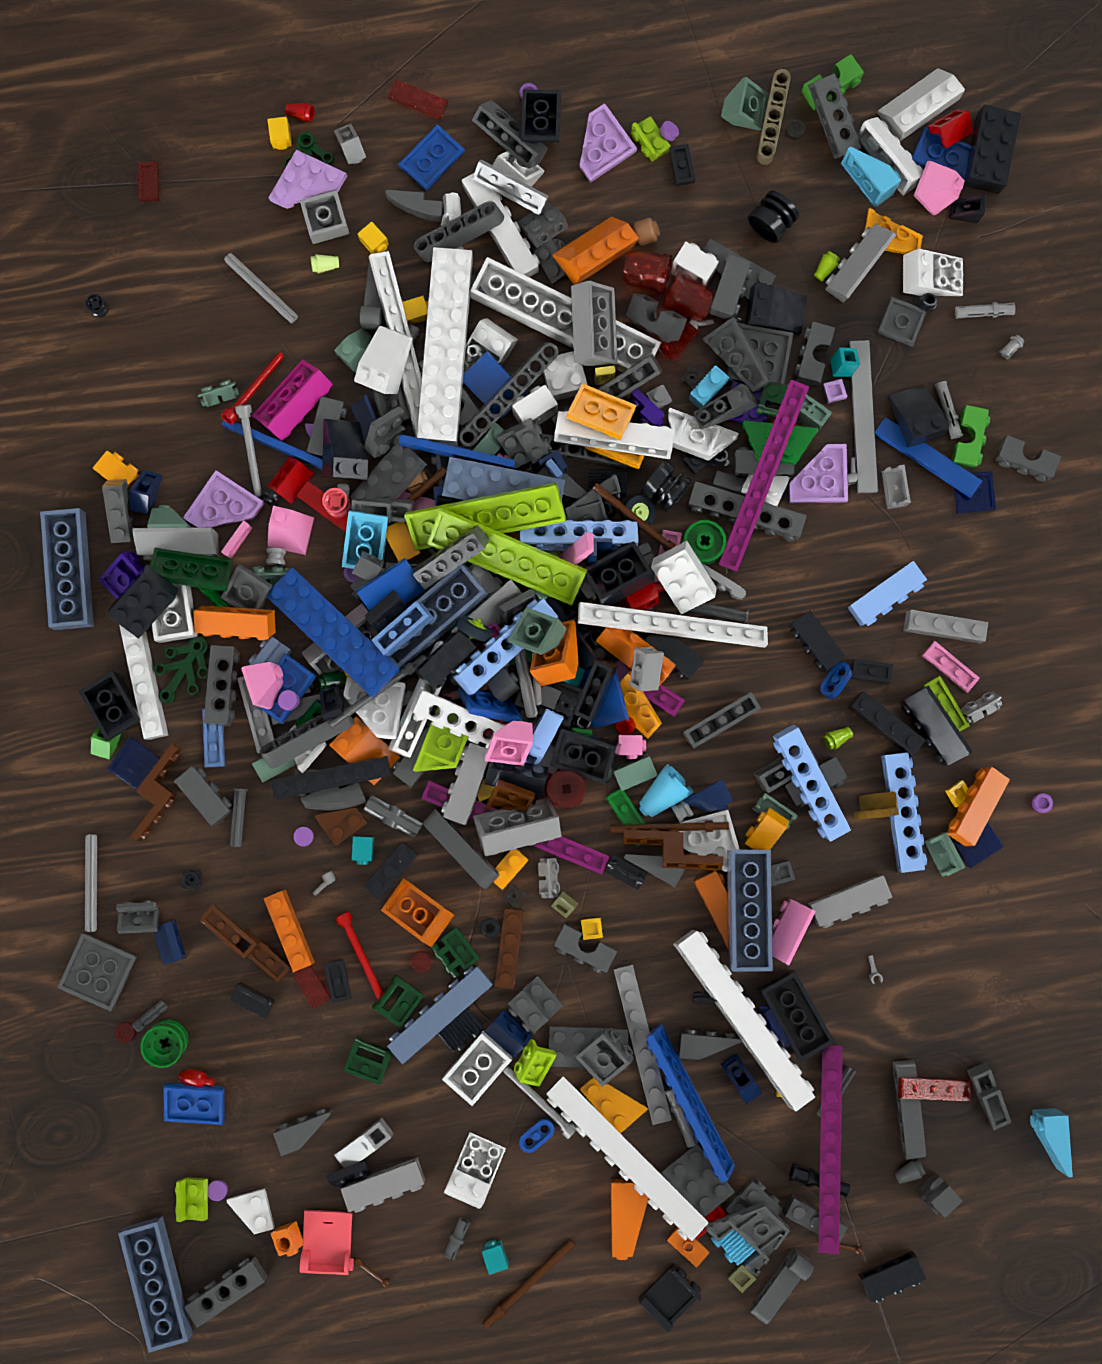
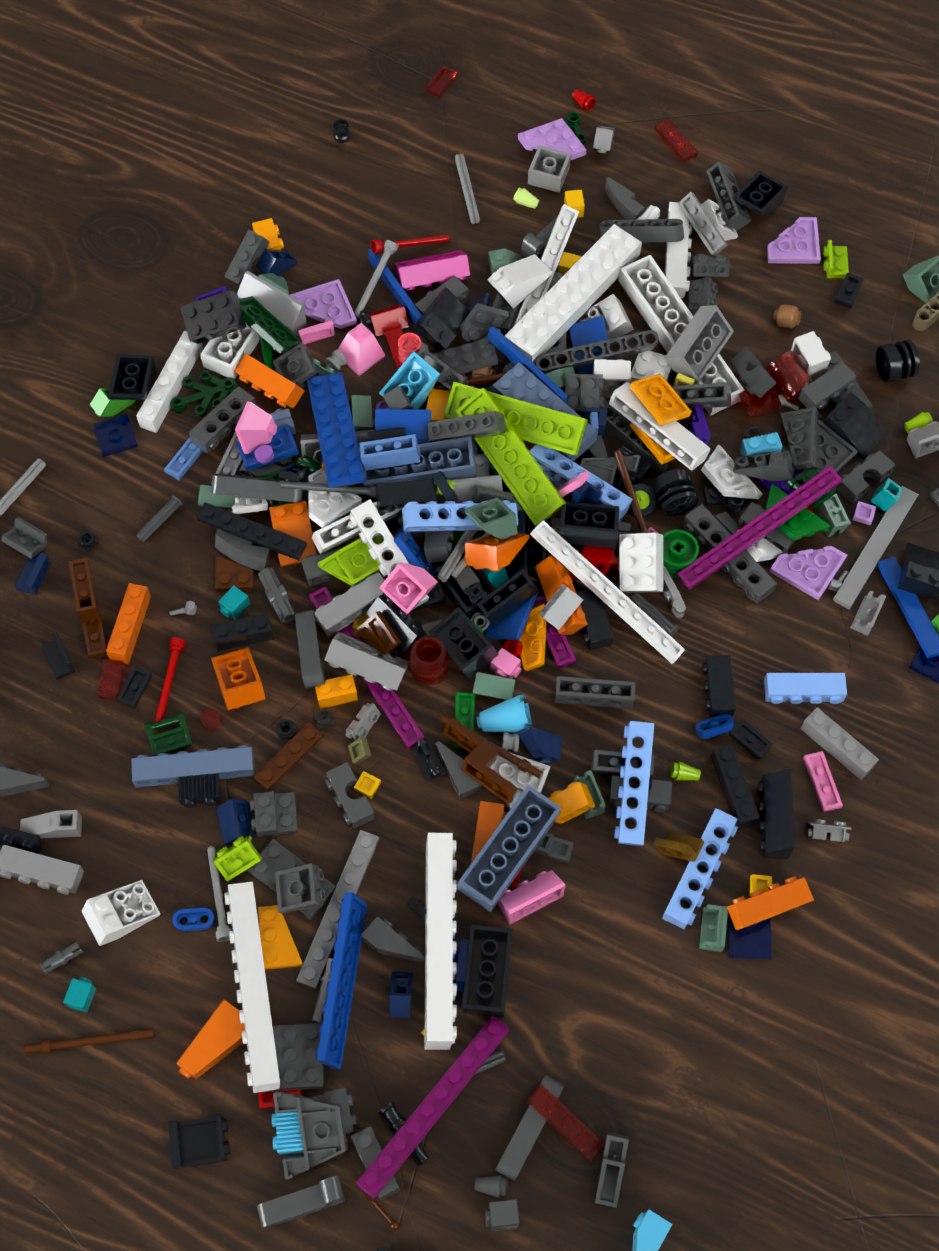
camera: 35 degrees right, 20 degrees down
(67, 569) = (178, 276): sand blue brick -> none
(156, 793) = (113, 461): reddish brown bracket -> none
(204, 795) = (147, 486): dark grey brick -> none
(210, 394) = (375, 231): sand green hinge -> none
(279, 133) = (558, 103): yellow brick -> none
(303, 836) = (196, 566): medium lavender tile -> none
(337, 594) = (361, 412): none -> sand green hinge
(367, 1067) = (102, 768): dark green plate -> none
(431, 157) = (658, 181): blue tile -> none
(460, 949) = (249, 728): dark green plate -> none
(477, 1068) = (188, 827): white brick -> none
(543, 733) = (438, 605): light blue slope -> none
(596, 249) = (742, 304): orange slope -> none
(647, 270) = (769, 339): clear red piece -> none
(659, 396) = (717, 433): light grey plate -> none
(669, 131) = (854, 263): medium lavender tile -> none
(691, 1250) = (247, 1109): orange plate -> none
(741, 1278) = (272, 1170): olive plate -> none
(850, 900) = (603, 910): light grey brick -> none
(873, 970) = (584, 983): light grey hand -> none
(947, 701) = (800, 808): lime tile -> none
(1042, 803) = (831, 946): medium lavender tile -> none

